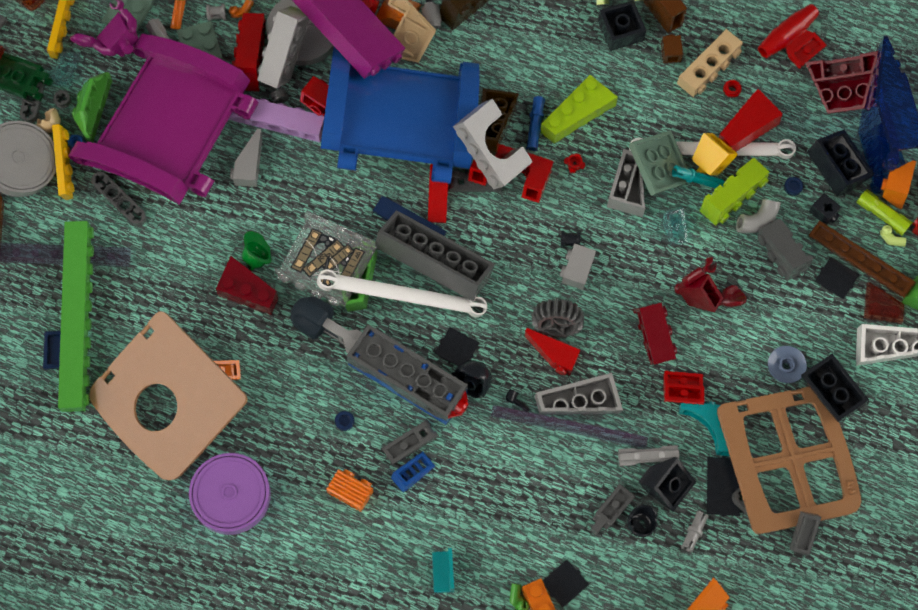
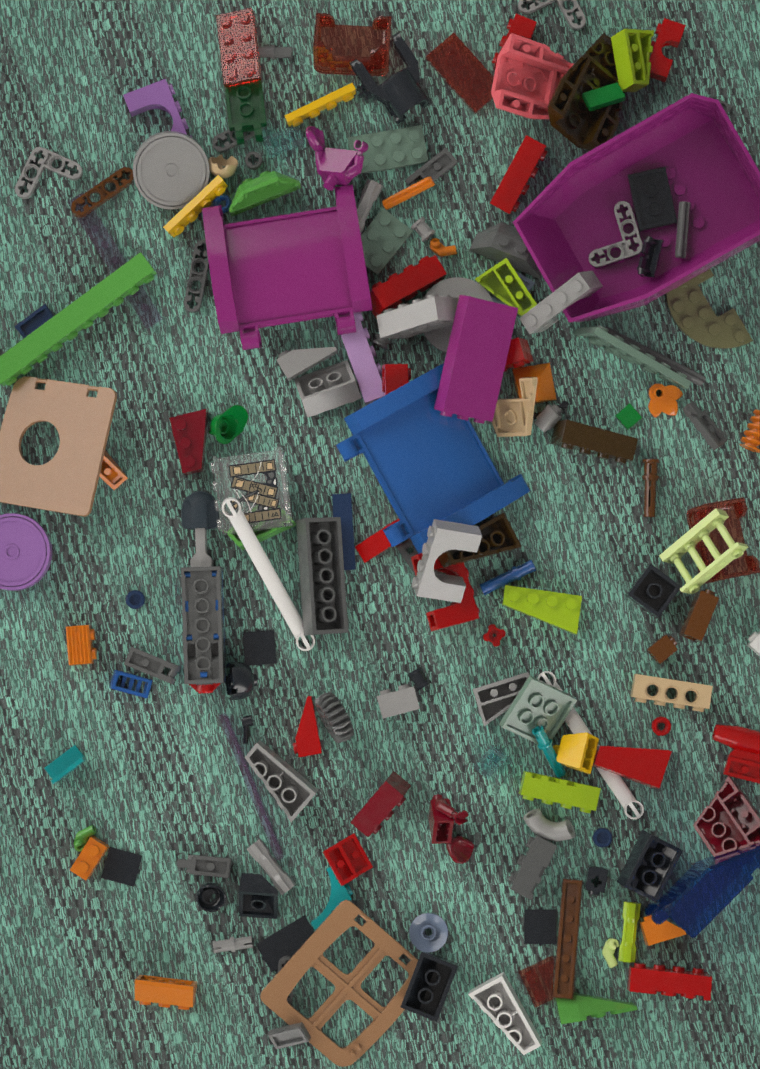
camera: 65 degrees right, 15 degrees up
(286, 158) = (327, 388): none -> light grey slope

